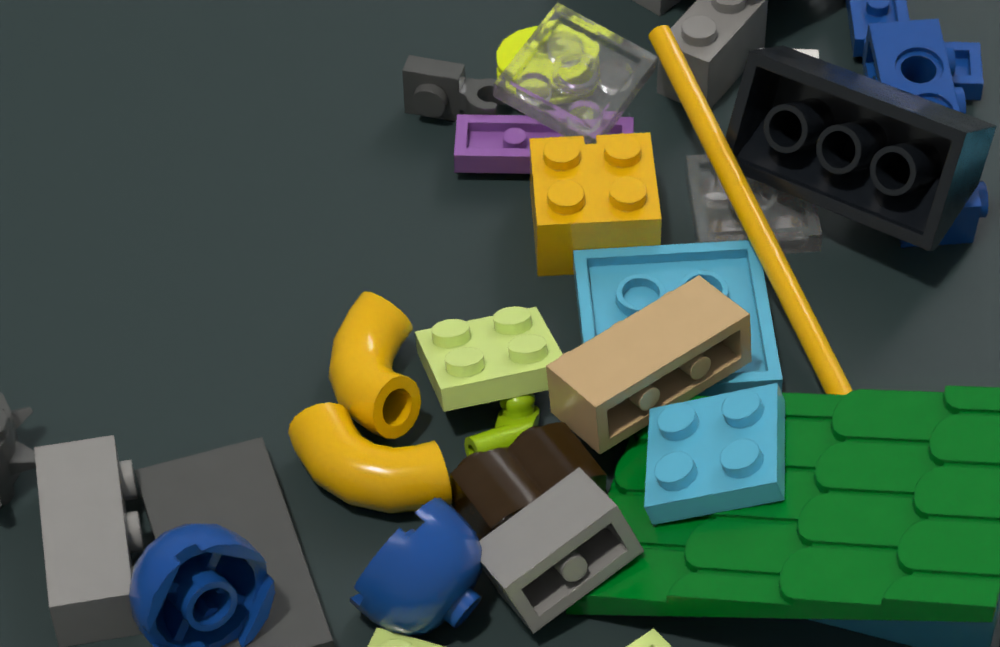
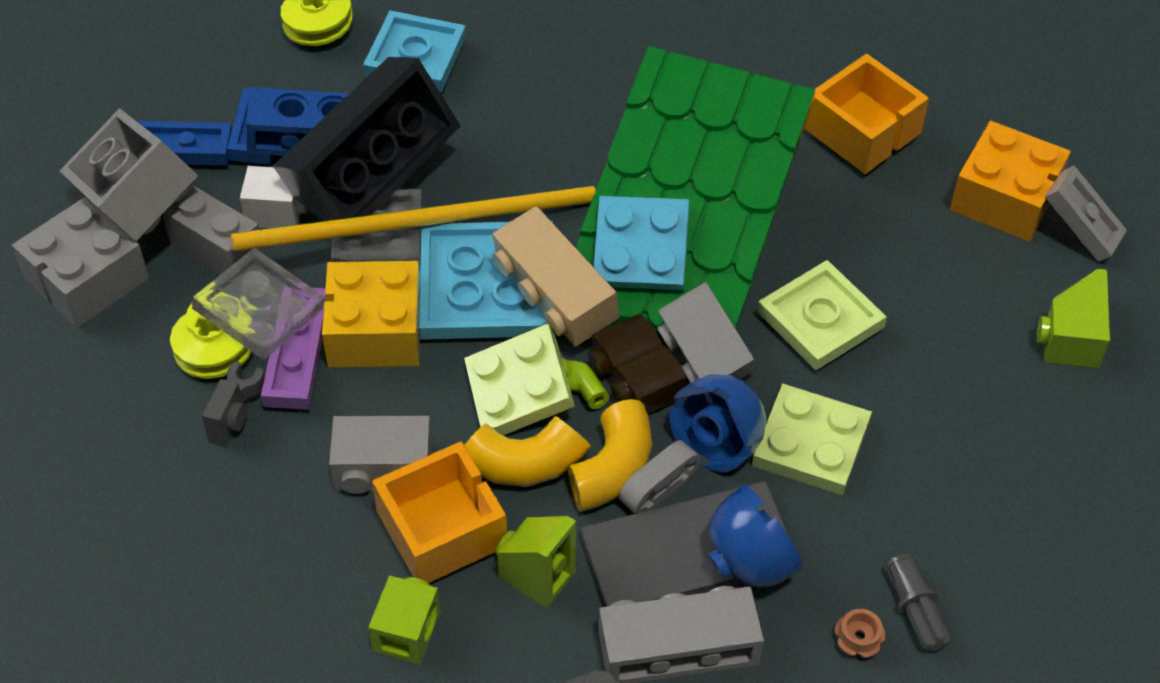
camera: 90 degrees left, 5 degrees up
(134, 273) = (404, 619): none -> lime brick
(200, 384) = (539, 557): none -> lime slope
(268, 281) = (435, 513): none -> light orange piece
(335, 516) = (660, 477): none -> light grey beam
(372, 233) = (375, 446): none -> light grey brick

